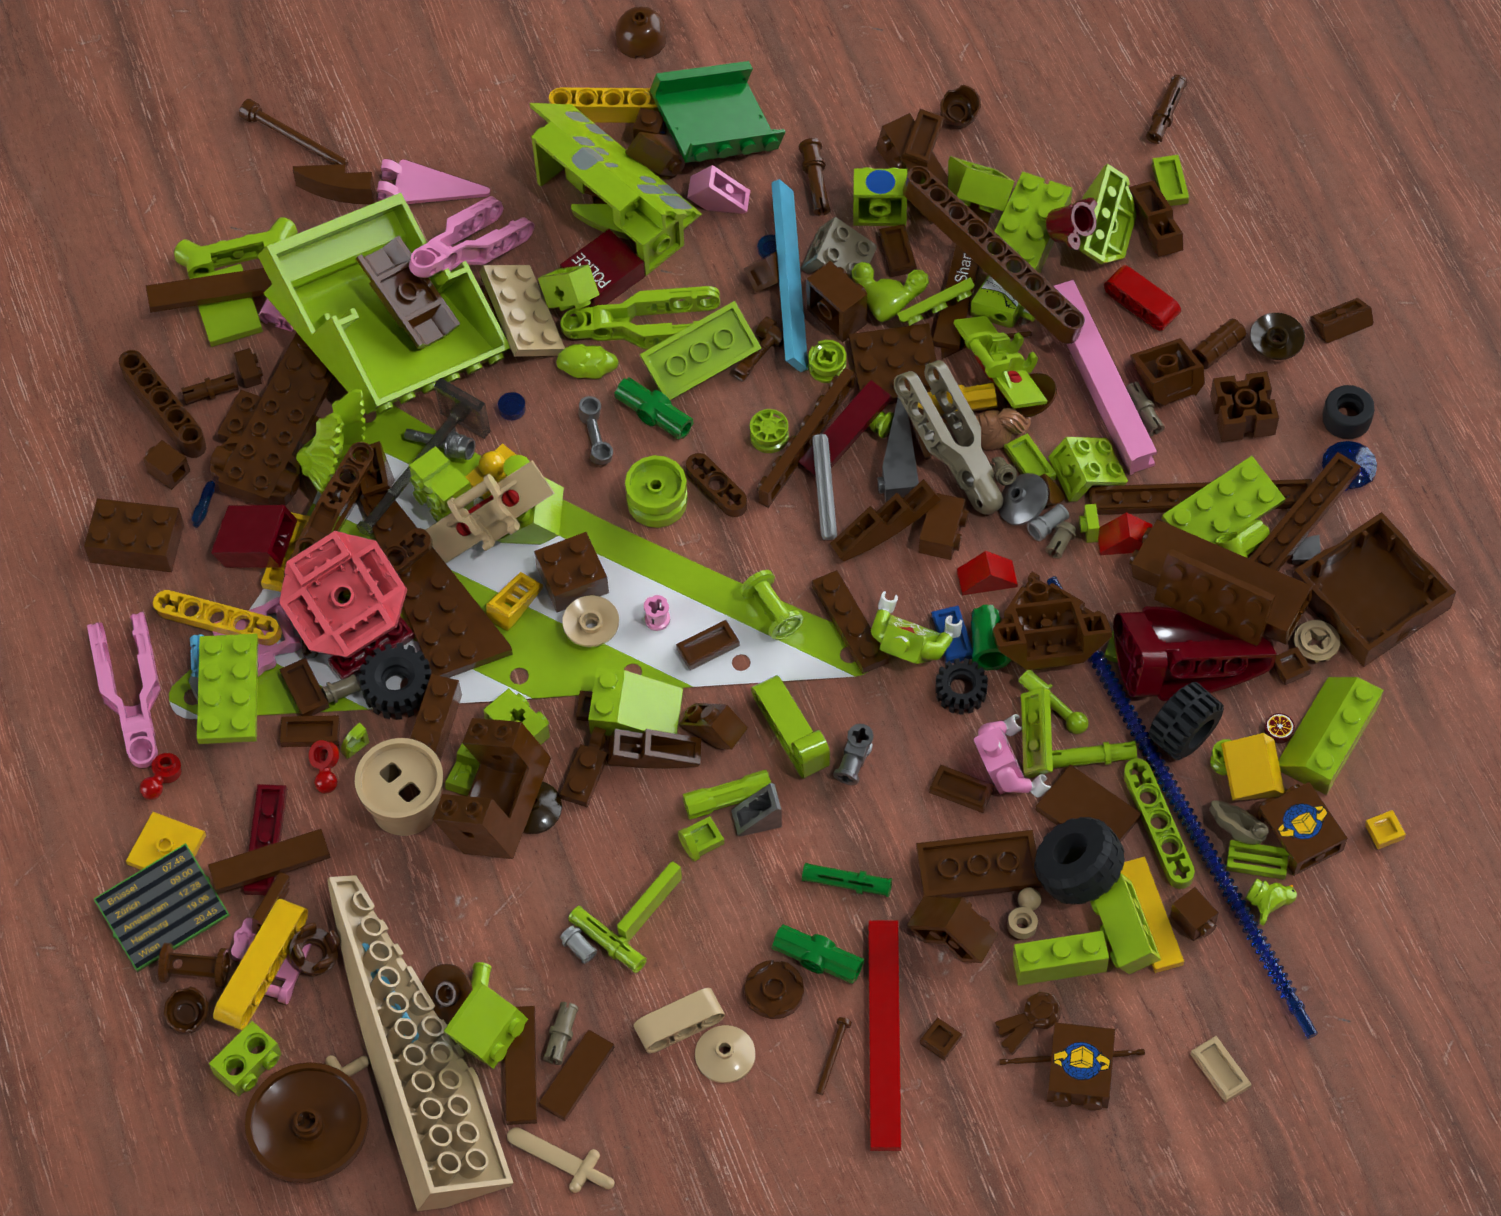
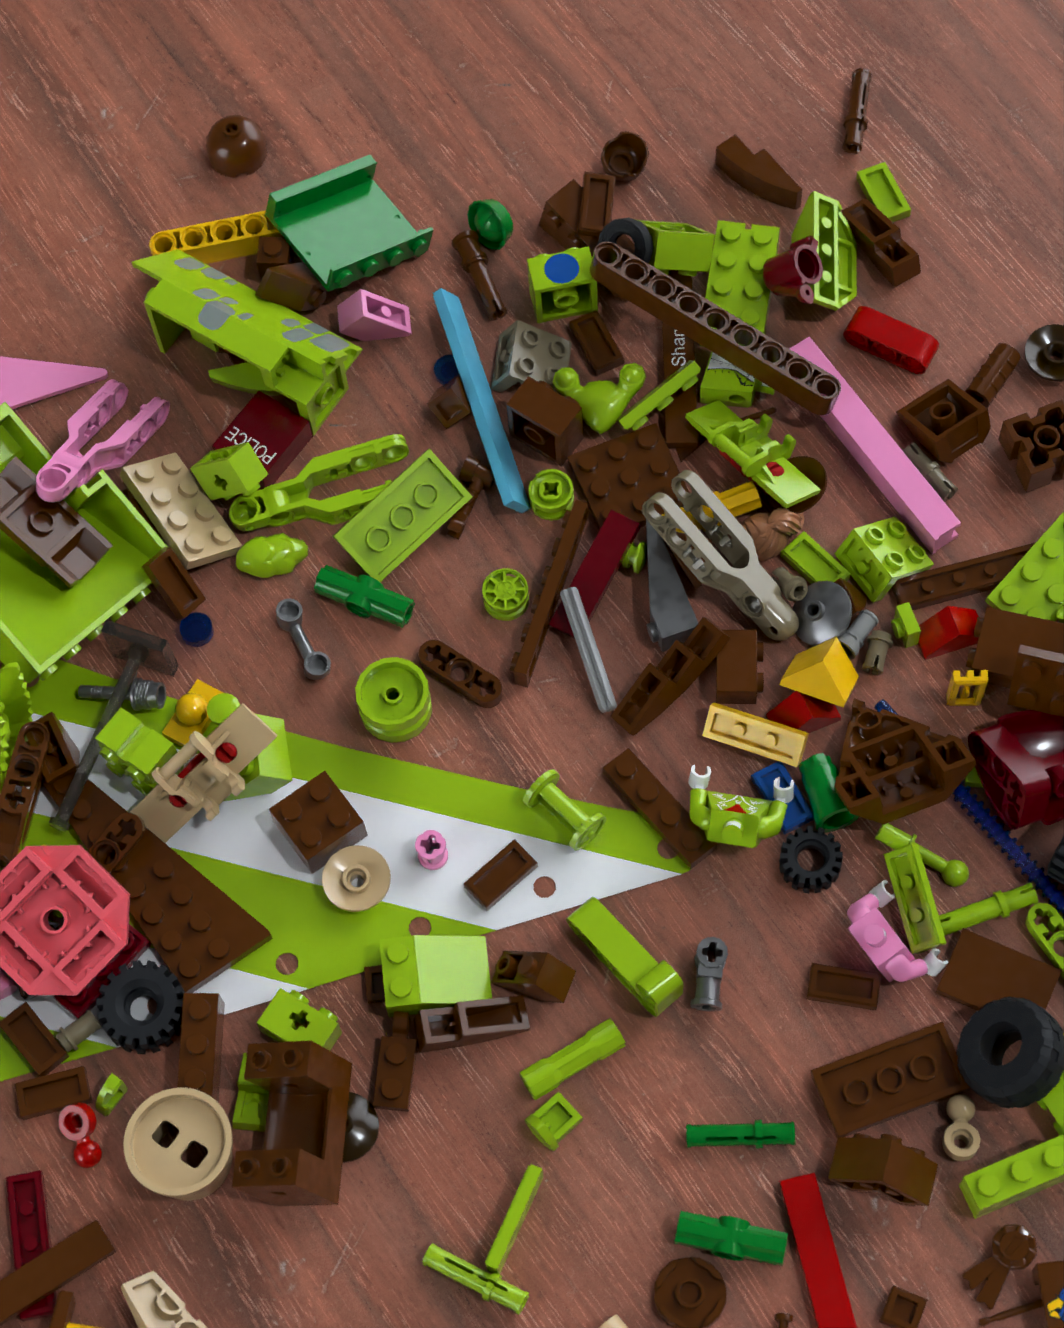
camera: 10 degrees left, 5 degrees up
(502, 364) = (173, 583): none -> reddish brown tile
(507, 616) = (250, 891): yellow slope -> none
(578, 944) = (442, 1293): light grey pin -> none
(758, 812) = (614, 1074): flat silver slope -> none
(834, 136) = (490, 222): none -> green hat
(942, 580) = (755, 734): none -> yellow plate
(949, 164) = (636, 230): none -> black tyre
(1011, 544) = (822, 673): none -> yellow slope
(1068, 142) = (758, 173): none -> reddish brown slope
(1125, 571) = (956, 681): none -> yellow tile

